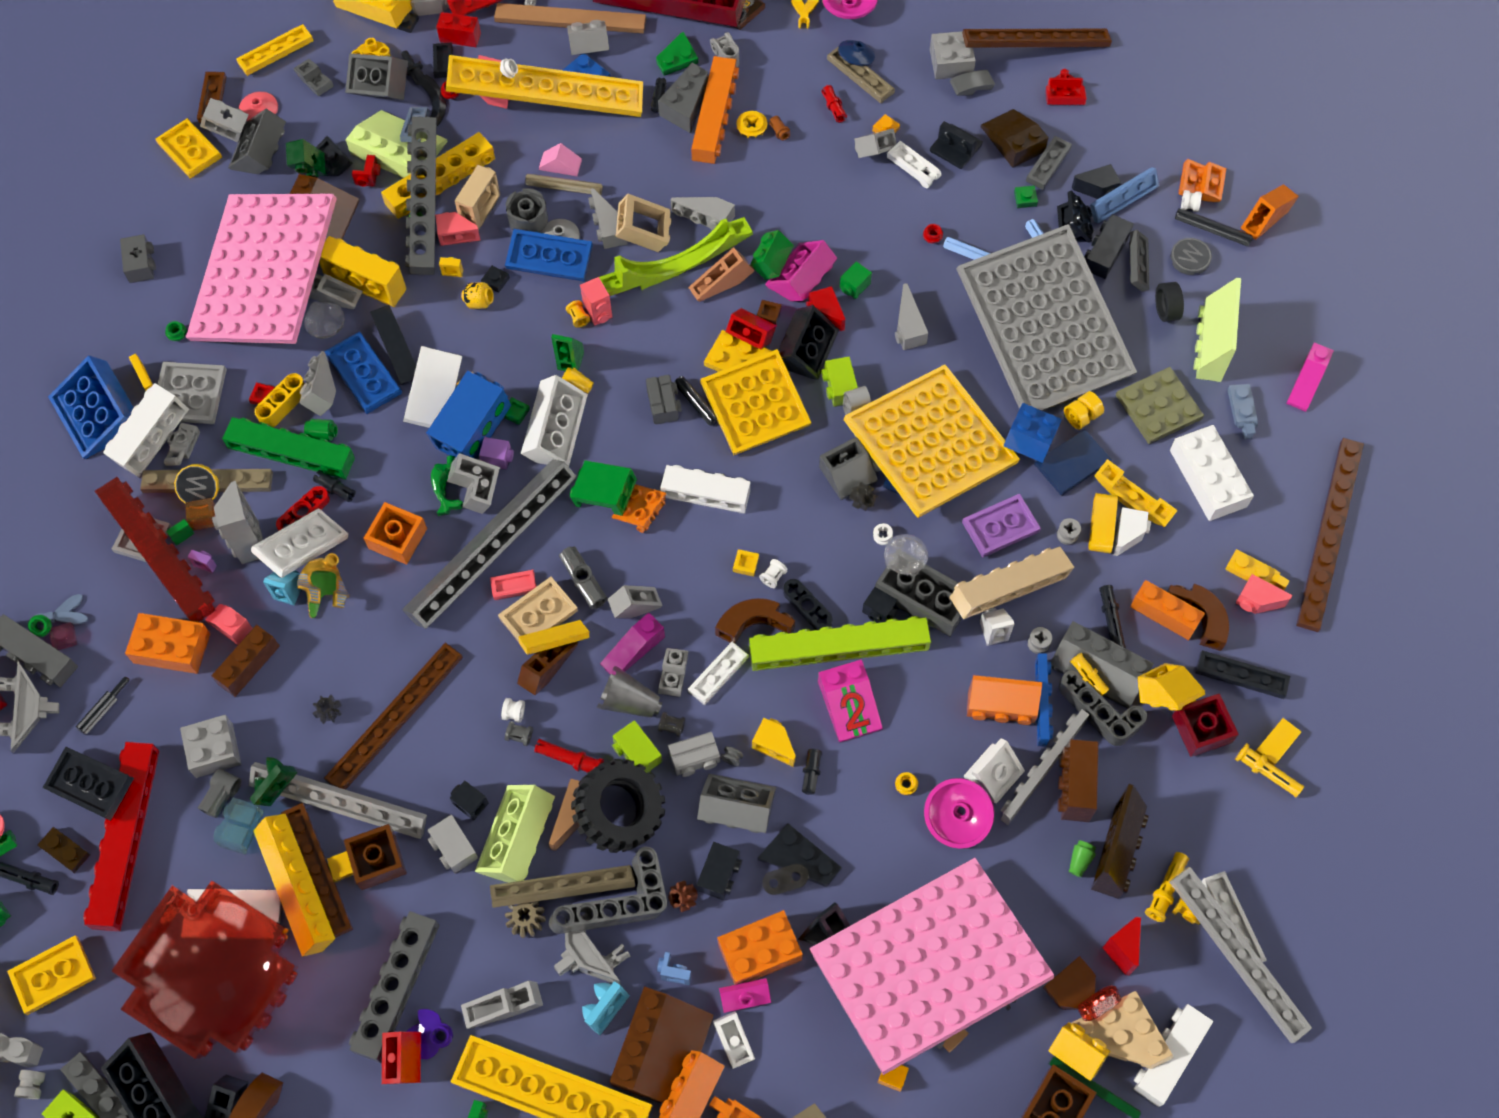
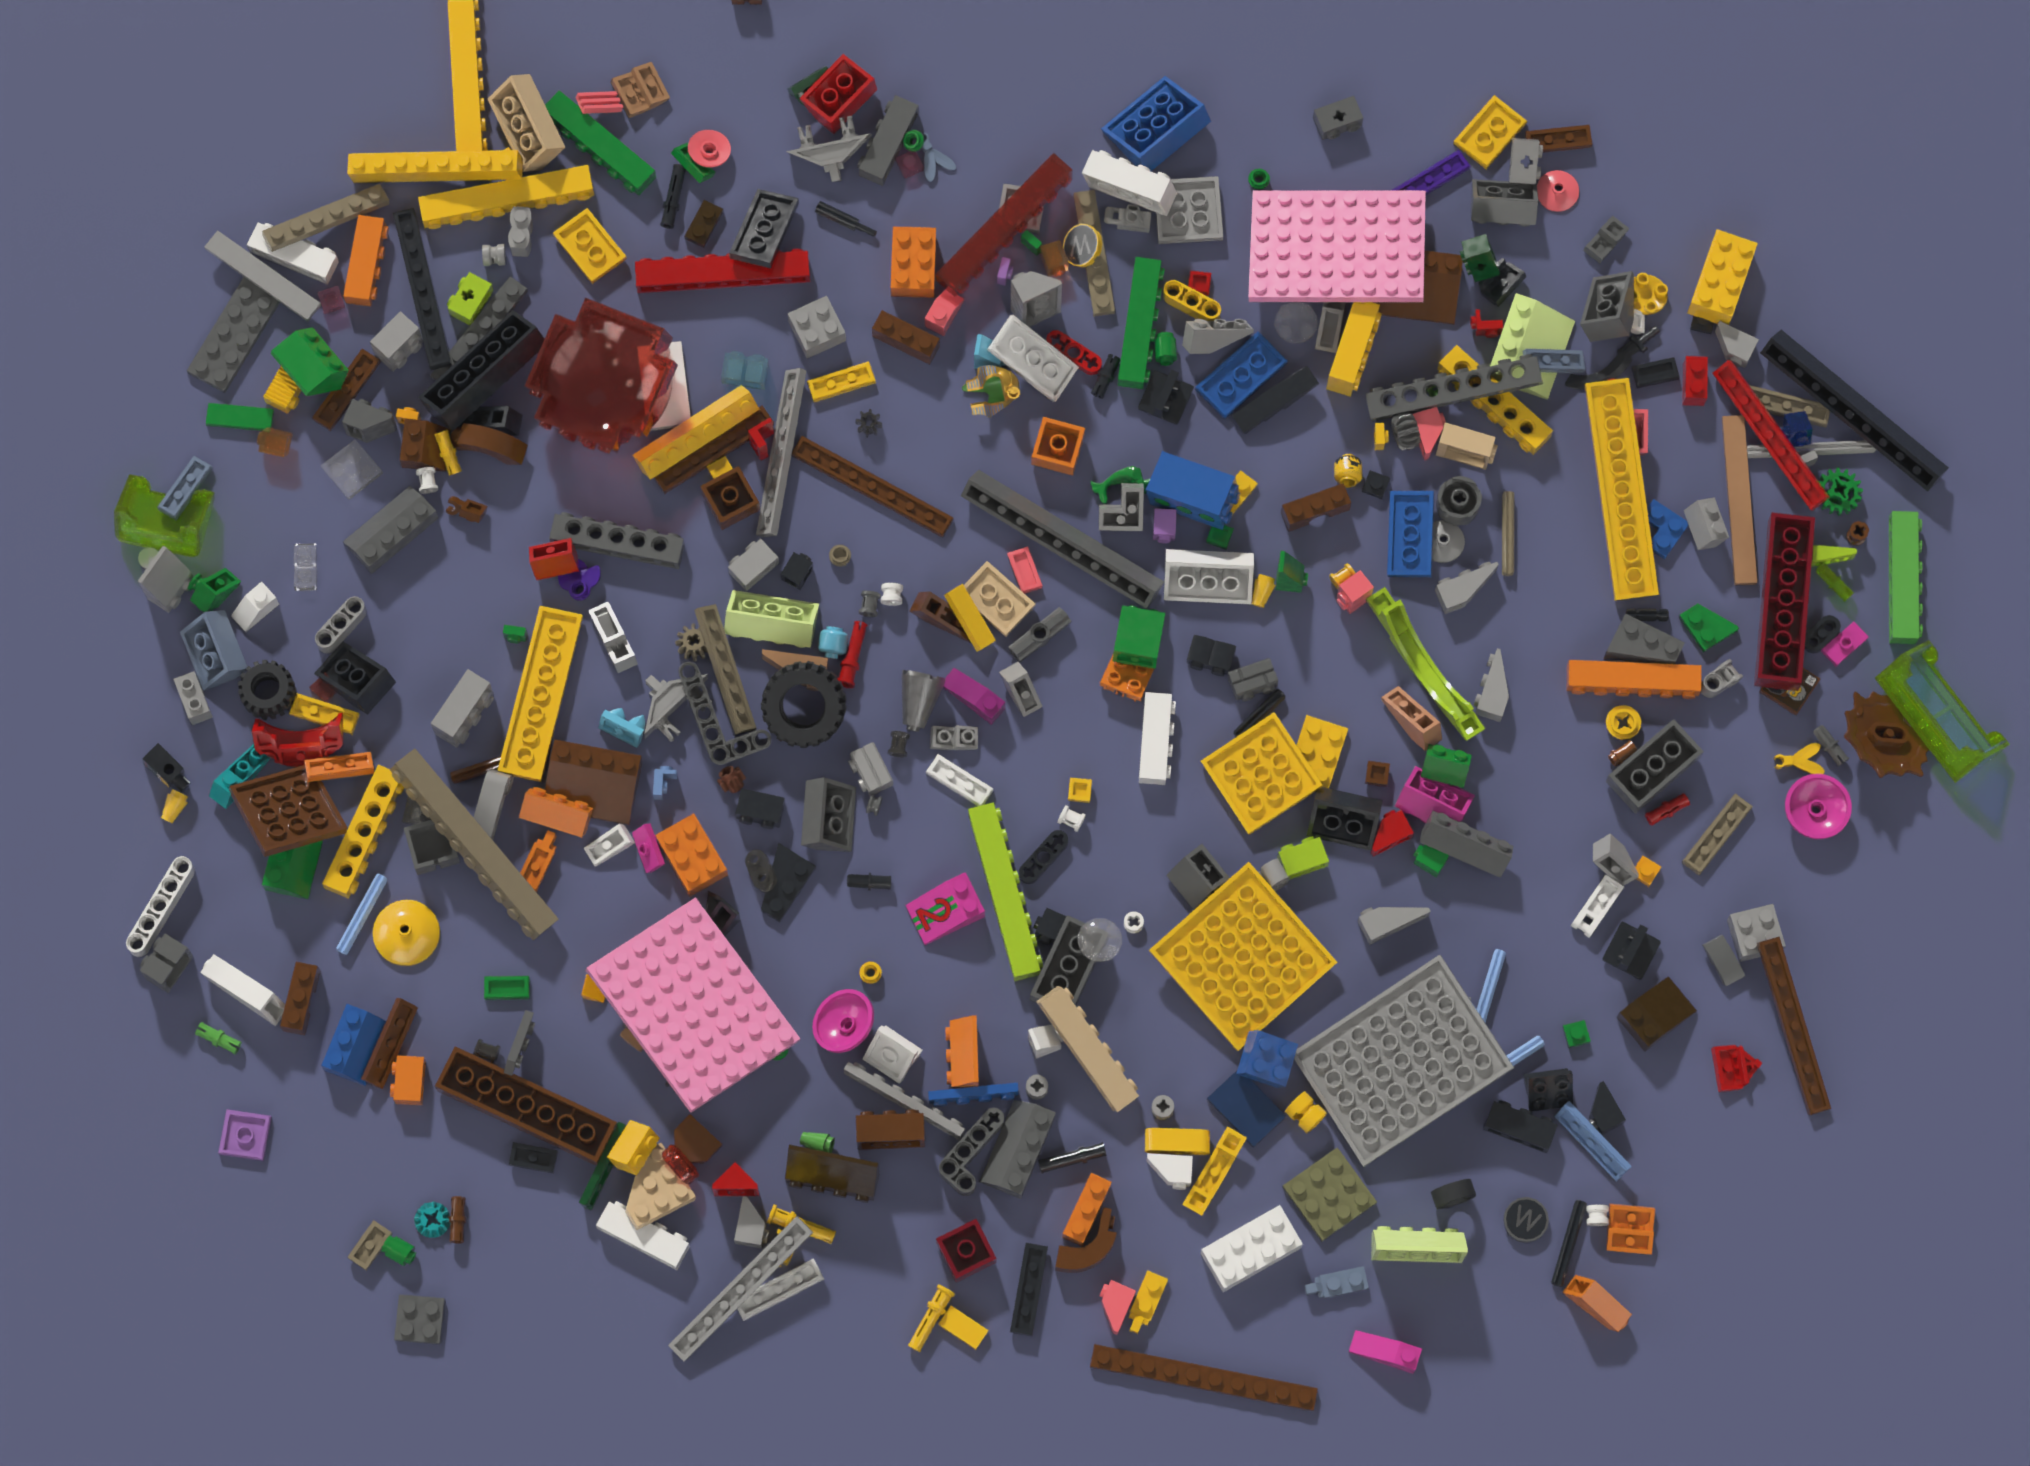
camera: 80 degrees right, 10 degrees up
(141, 371) = (1199, 161): yellow tile -> none
(214, 190) = (1437, 174): none -> dark purple tile
(221, 788) = (780, 347): dark grey piece -> none
(270, 788) = (780, 390): dark green tile -> none
(274, 49) = (1634, 190): yellow plate -> none
(275, 730) = (841, 382): none -> yellow tile
(320, 819) = (758, 435): none -> red panel
(368, 436) = (1166, 396): none -> black bracket
(431, 385) = (1231, 447): white tile -> none
(452, 243) = (1405, 431): none -> dark grey gear
(461, 757) = (840, 555): none -> dark tan plate
(507, 325) = (1303, 510): none -> reddish brown arch
(508, 68) = (1624, 444): white plate -> none
(552, 774) = (833, 642): none -> medium azure head
(560, 160) = (1537, 525): bright pink slope -> none
(632, 430) = (1211, 655): none -> black brick
(636, 235) = (1461, 602): tan window -> none
(636, 746) = (868, 715): lime brick -> none
(749, 613) = (1019, 792): reddish brown arch -> none
(751, 328) = (1350, 756): red brick -> none
(773, 741) = (894, 842): yellow slope -> none
(797, 102) = (1654, 766): none -> dark grey brick
(848, 246) = (1466, 843): none -> dark grey brick
(856, 52) = (1734, 825): dark blue dish -> none
(863, 496) = (1169, 895): clear smoke gear -> none
(933, 229) = (1508, 930): red plate -> none
(1001, 525) = (1159, 1038): medium lavender plate -> none
(1048, 162) = (1625, 1054): dark grey plate -> none
(1089, 674) = (1002, 1134): yellow pin -> none
(1139, 260) = (1507, 1162): dark grey plate -> none
(1168, 938) = (750, 1227): none -> light grey slope
(1169, 687) = (996, 1210): yellow slope -> none

